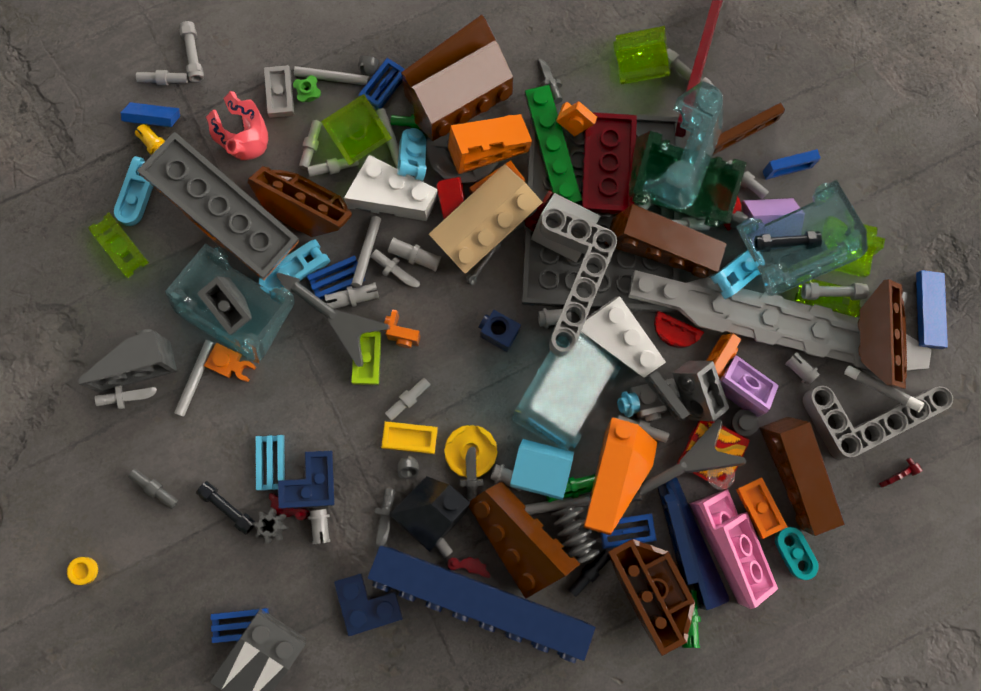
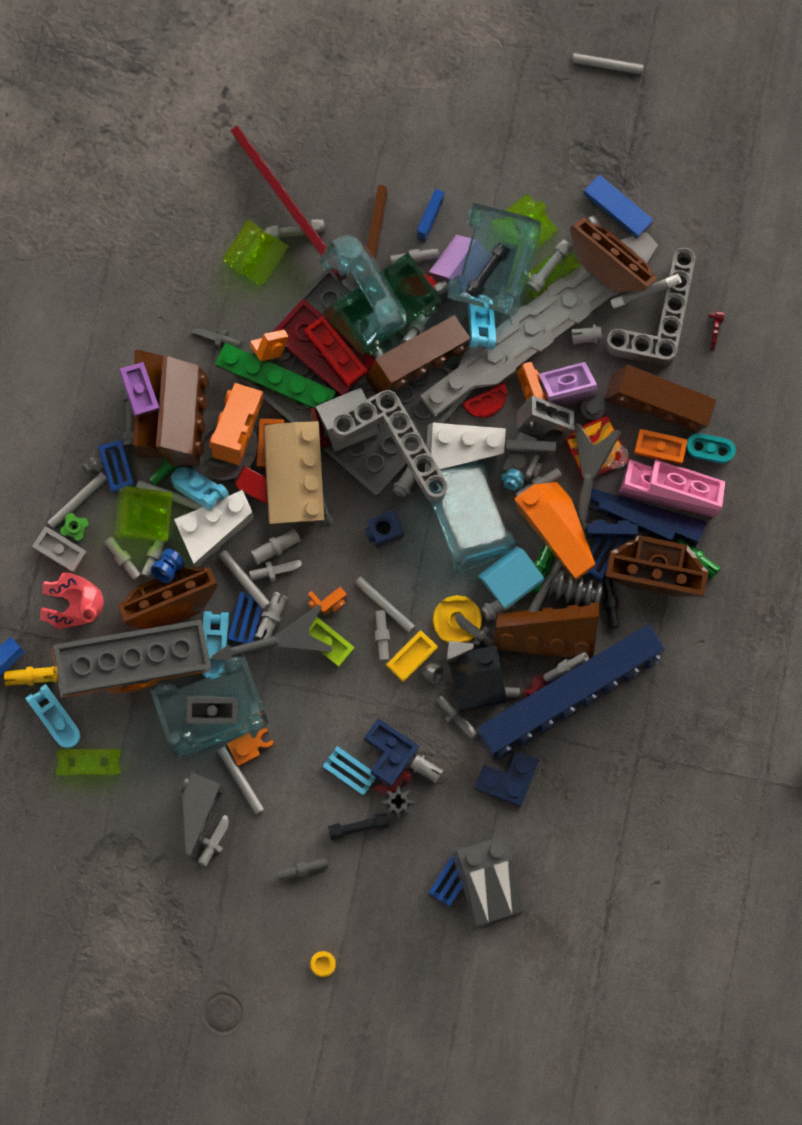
camera: 45 degrees left, 0 degrees up
(329, 181) = (167, 566): none -> blue wheel
(436, 380) = (384, 604): none -> light grey bar
(443, 472) = (457, 650): none -> light grey slope
(449, 39) = (138, 389): none -> medium lavender plate
(500, 580) = (565, 667): none -> light grey bar
(614, 173) = (335, 351): none -> red tile
(660, 532) = (601, 530): none -> dark blue plate

